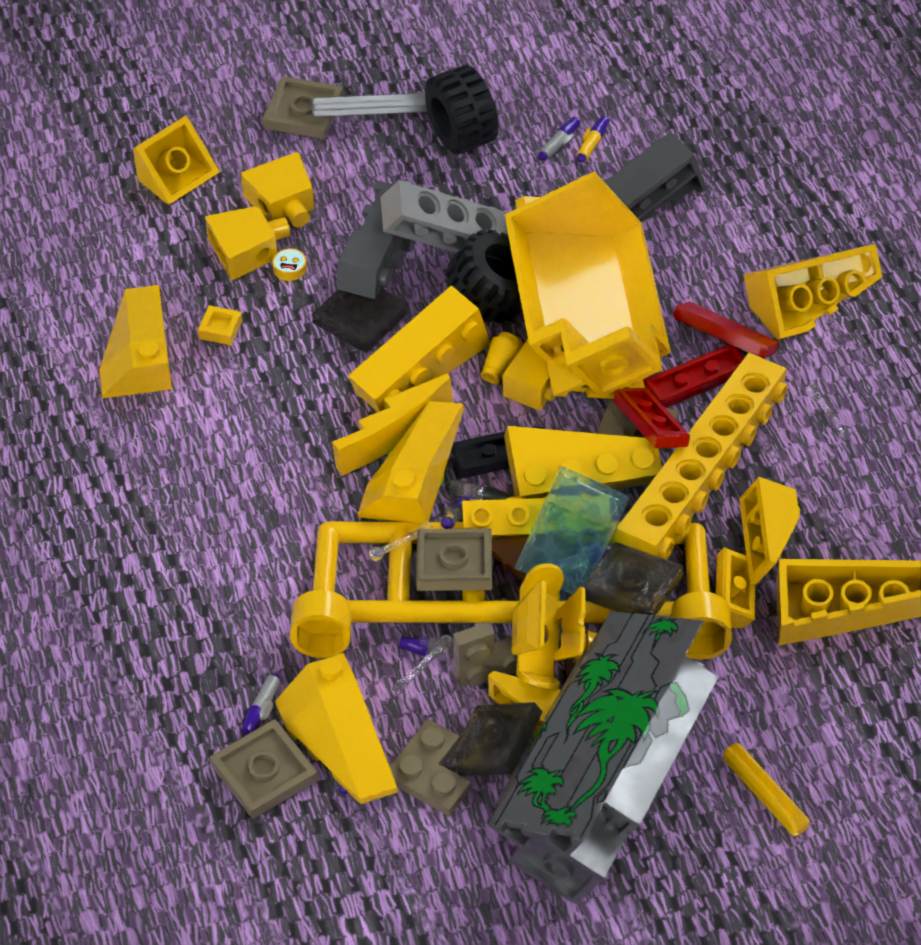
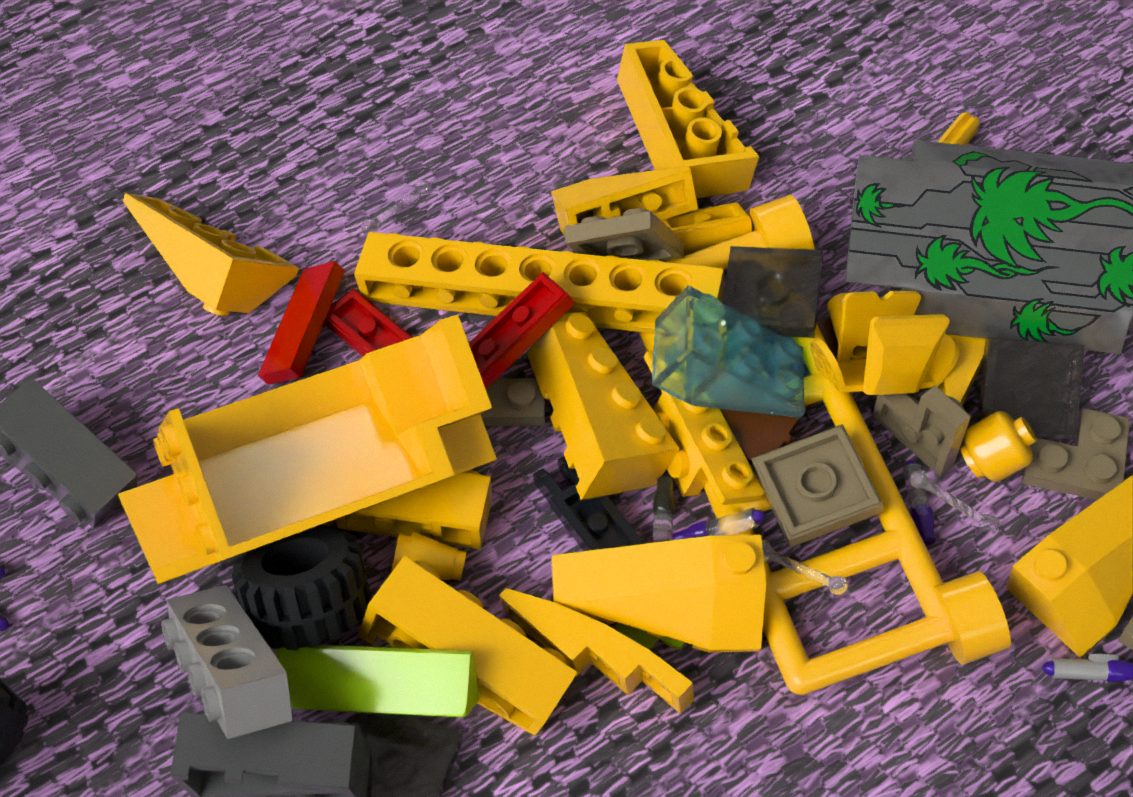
camera: 110 degrees left, 5 degrees up
(406, 302) = (381, 680): none -> lime slope
(452, 700) = (998, 446): none -> yellow head
(716, 507) = (629, 236): none -> dark tan plate

